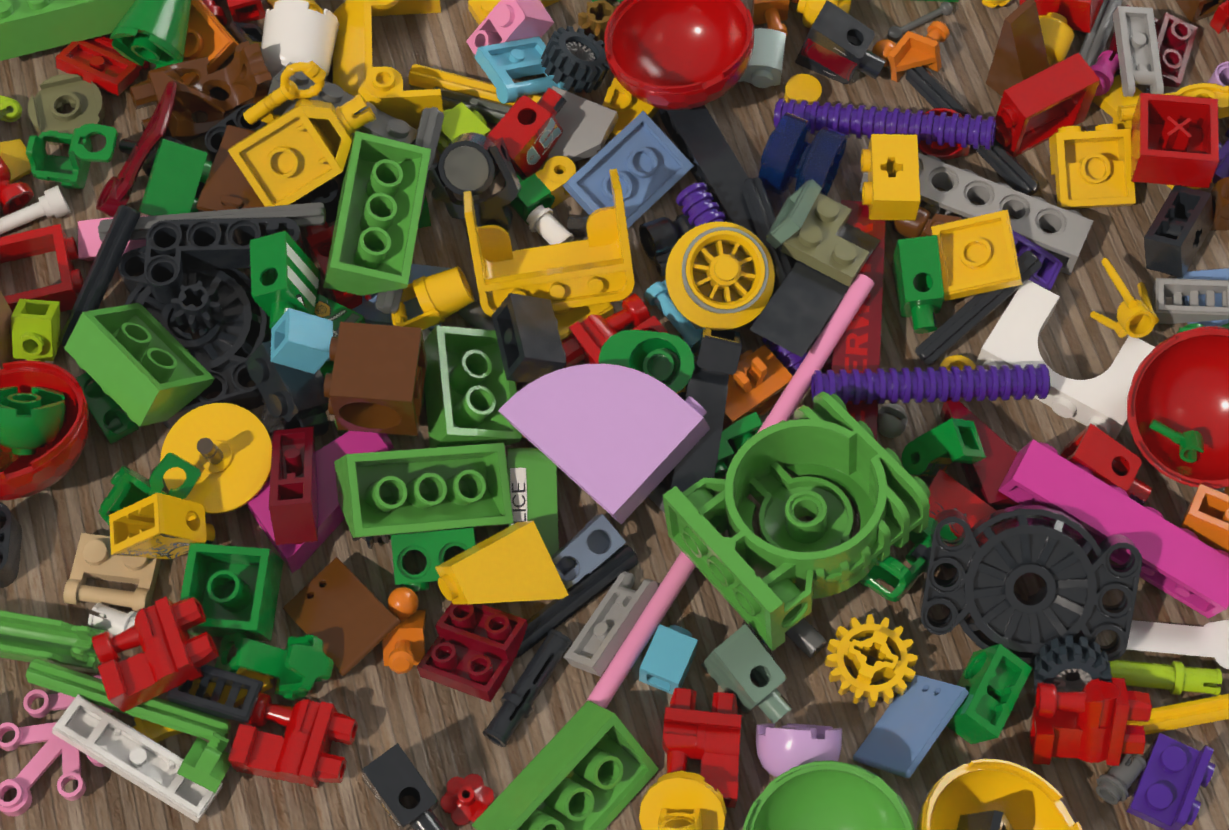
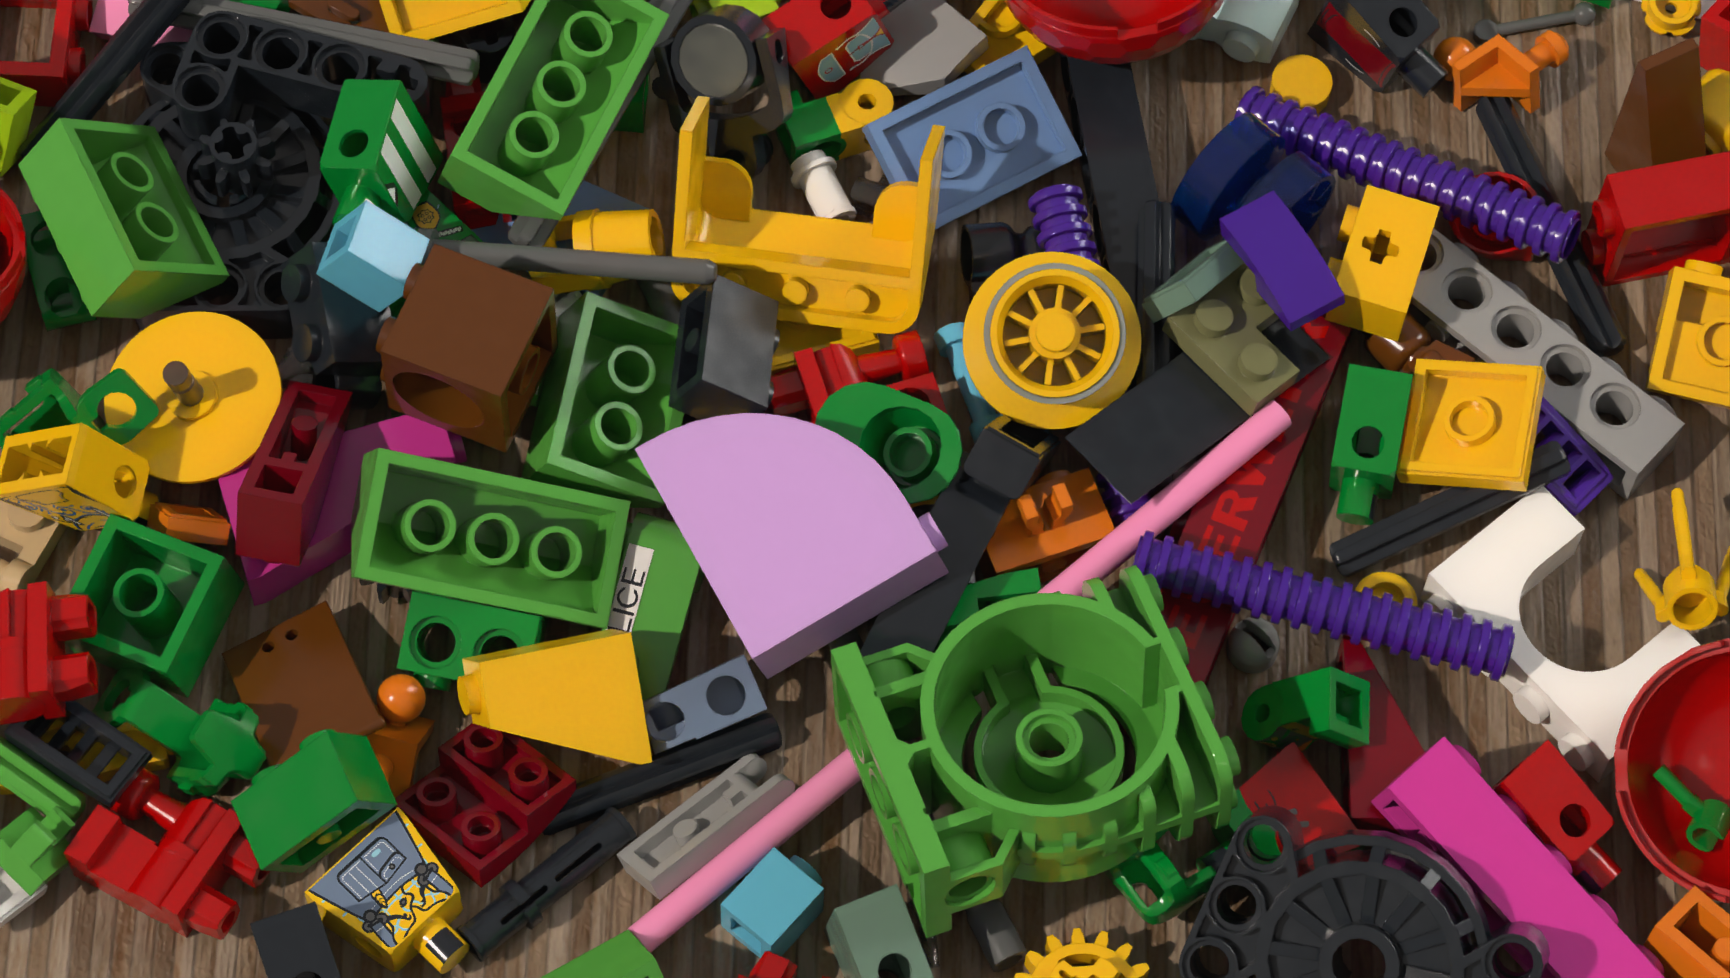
camera: 15 degrees right, 0 degrees up
(238, 534) = (189, 523): none -> orange tile
(373, 681) = (313, 801): none -> green brick
(429, 308) = (580, 261): none -> dark grey bar
(439, 725) = (392, 899): none -> torso
(841, 189) = (1283, 259): none -> dark purple slope

